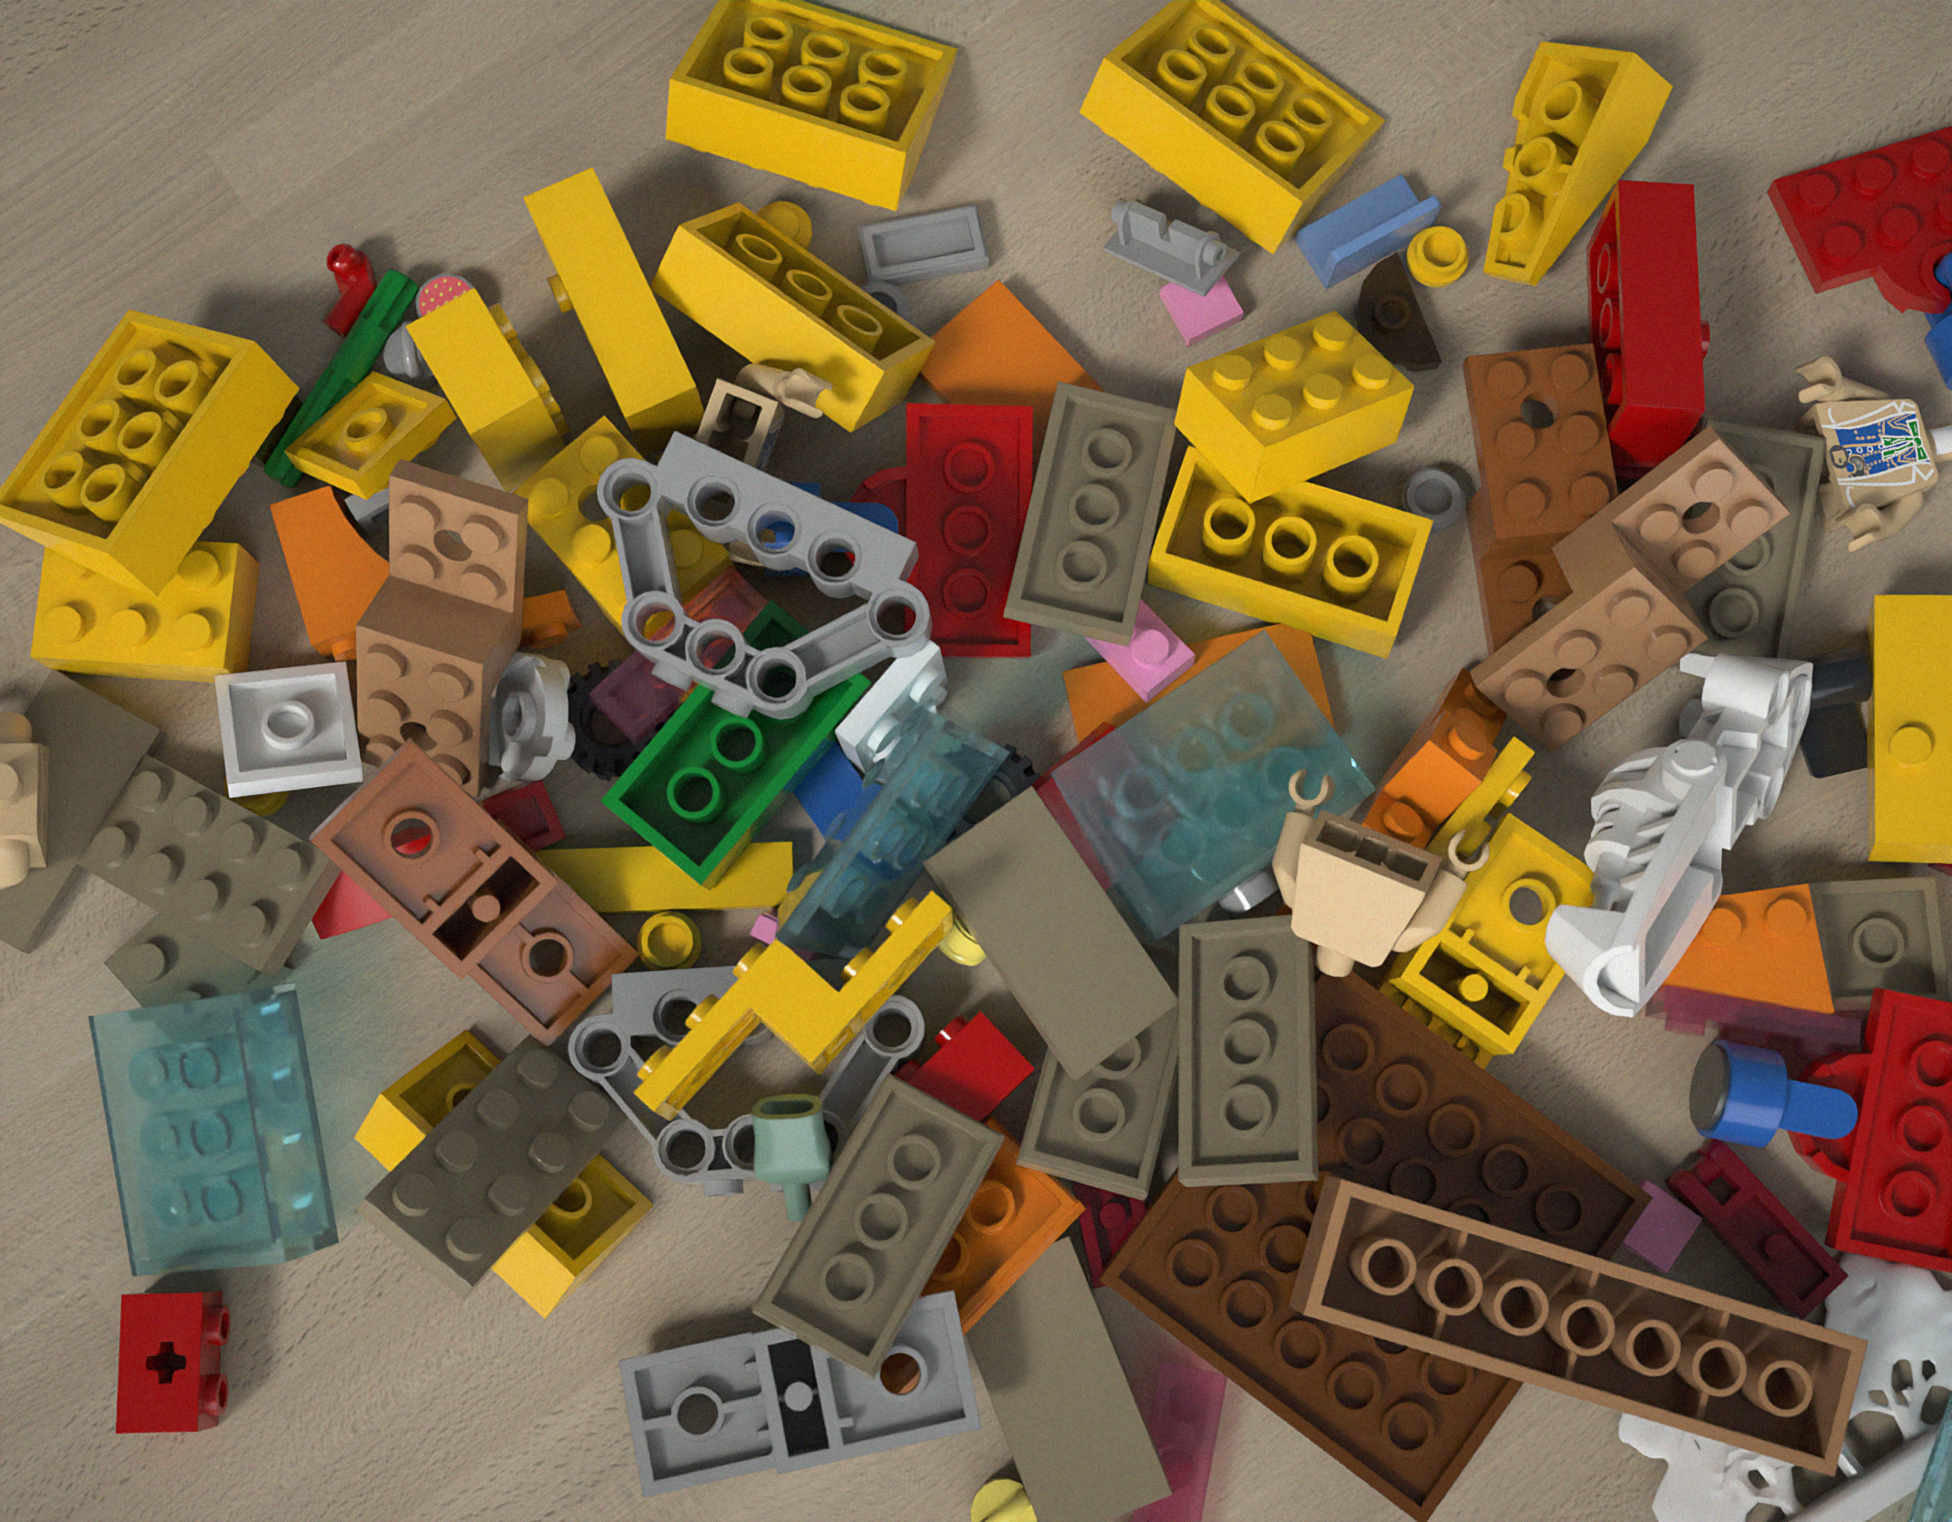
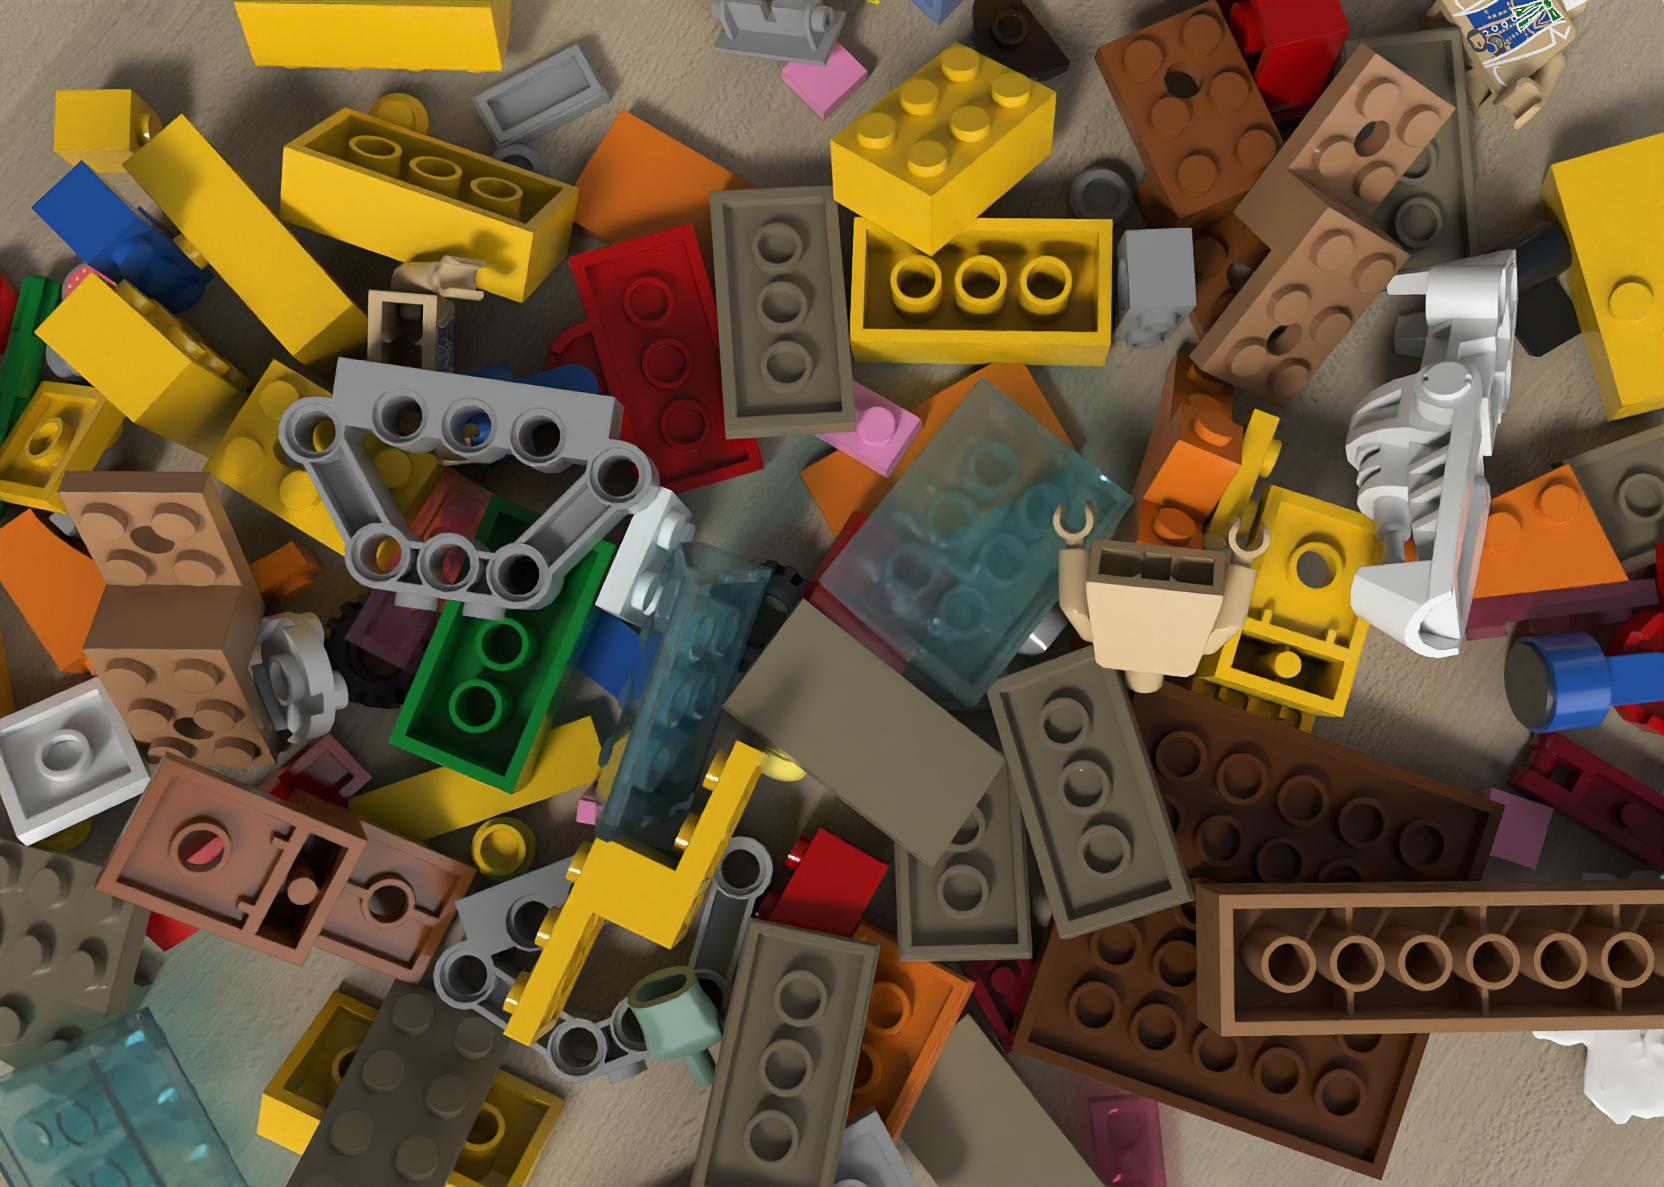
camera: 15 degrees left, 5 degrees up
(502, 263) = (121, 239): none -> blue arch
(507, 157) = (102, 127): none -> yellow brick
(1451, 595) = (1151, 285): none -> light grey brick

